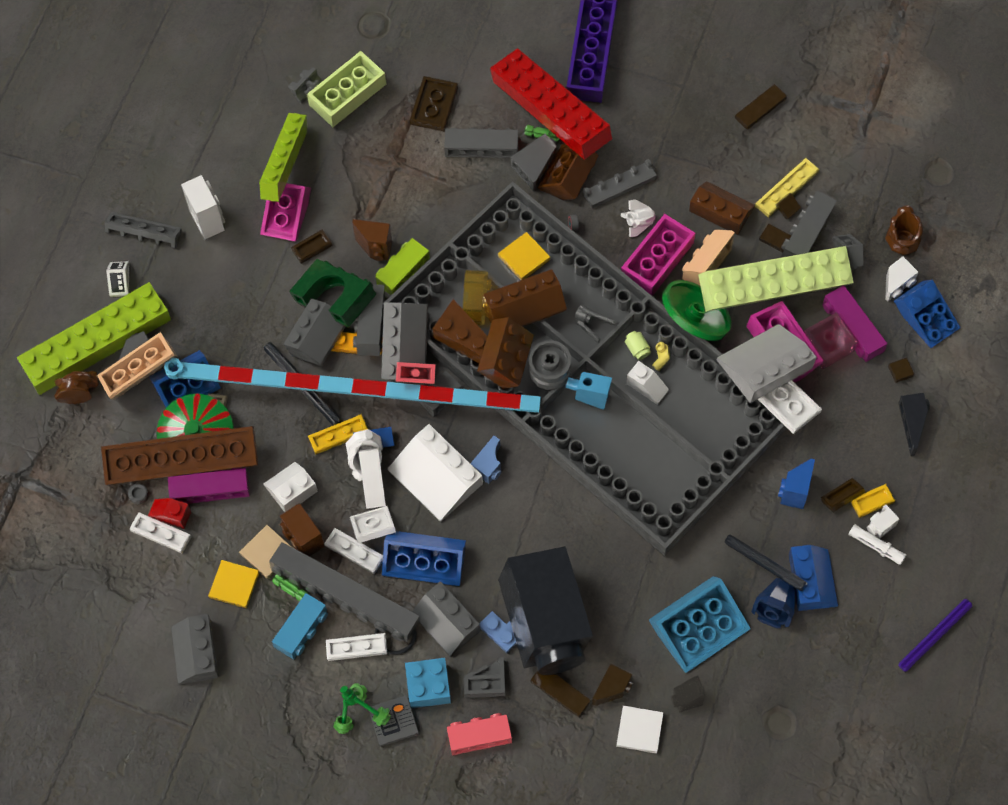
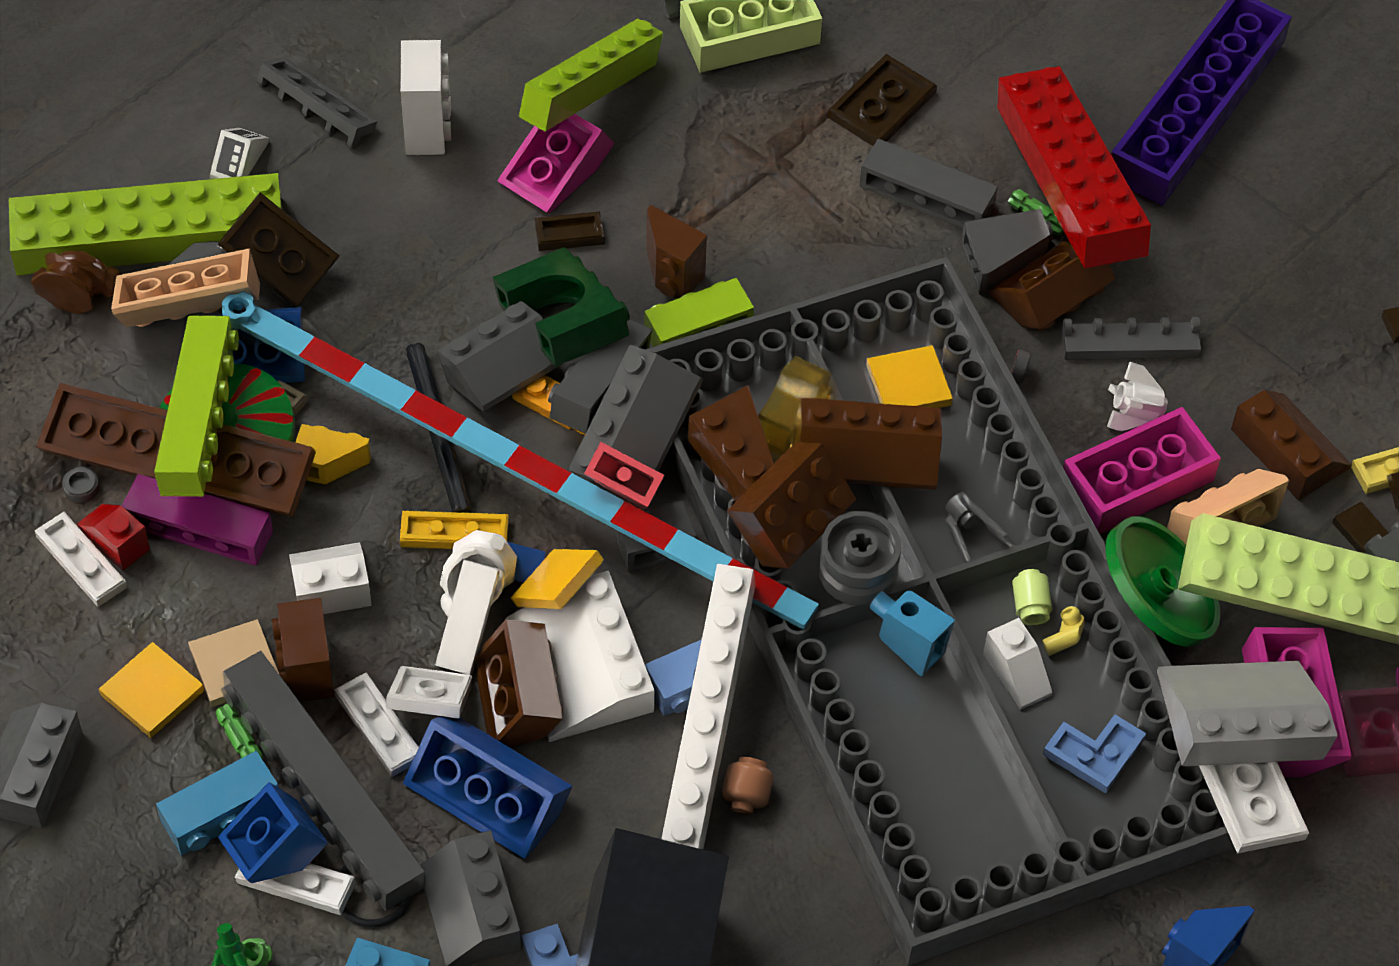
camera: 20 degrees right, 10 degrees down
(175, 323) = (282, 250): none -> dark brown tile
(182, 431) = (196, 406): none -> lime brick
(259, 419) = (335, 452): none -> yellow slope
(336, 632) = (272, 836): none -> blue slope
(406, 439) = (557, 578): none -> yellow tile
(413, 501) = (518, 683): none -> reddish brown slope
(515, 475) = (709, 706): none -> white brick
(547, 501) = (747, 785): none -> nougat head
(705, 415) = (1096, 760): none -> medium blue plate

